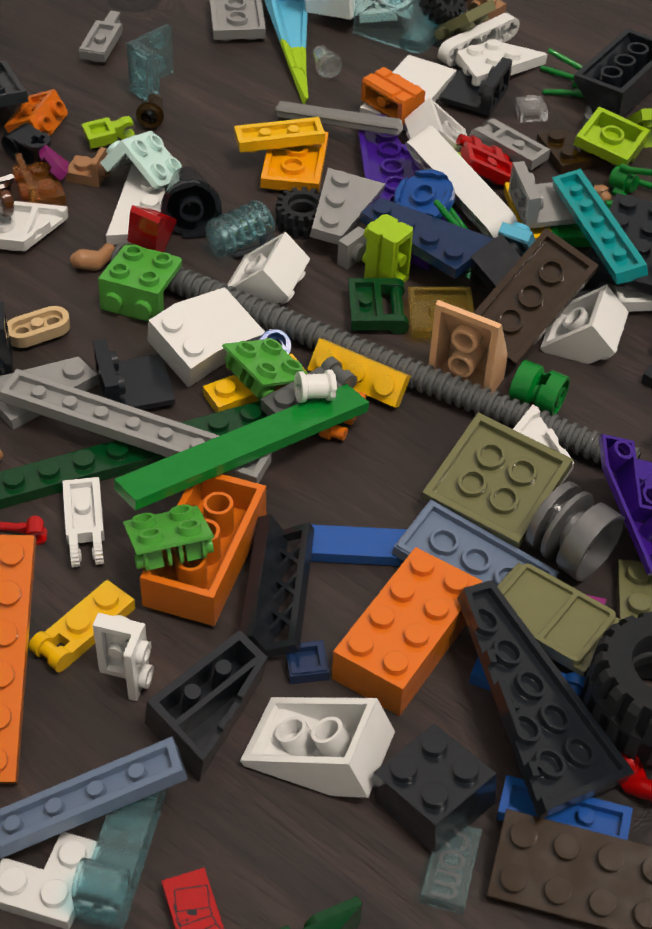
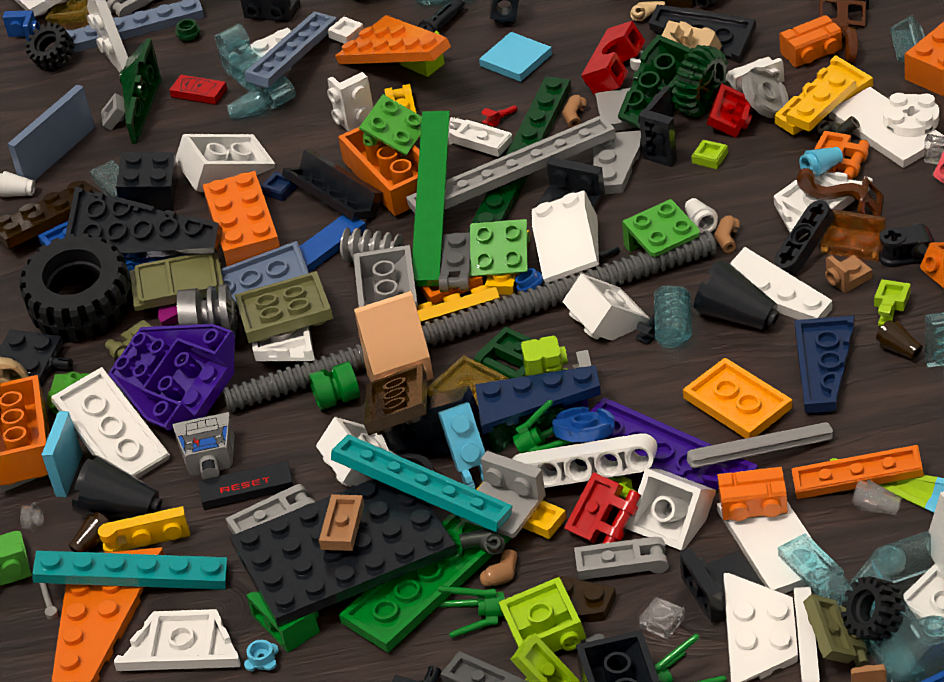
camera: 140 degrees right, 5 degrees down
(38, 326) = (673, 176): tan plate -> none
(58, 163) = (860, 243): magenta tile -> none
(83, 280) = (701, 215): none -> white cone
(85, 189) = (814, 220): none -> black beam
(147, 154) = (807, 291): light aqua bracket -> none
(149, 228) = (702, 244): red slope -> none
(193, 807) = (247, 105): none -> clear light blue cone
(207, 701) = (289, 121): black wedge -> none
(208, 137) = (822, 358): none -> dark blue wing
(279, 134) = (761, 383): yellow plate -> none
(297, 211) = (658, 356): black tyre -> none
(311, 75) = (846, 472): none -> orange tile
(315, 386) = (438, 242): white bush -> none
(340, 480) = (361, 243): none -> light grey piece
(341, 204) = (631, 377): light grey wing -> none
(393, 421) = (384, 274): none -> light grey slope
(423, 48) = (815, 567): none -> clear light blue hinge

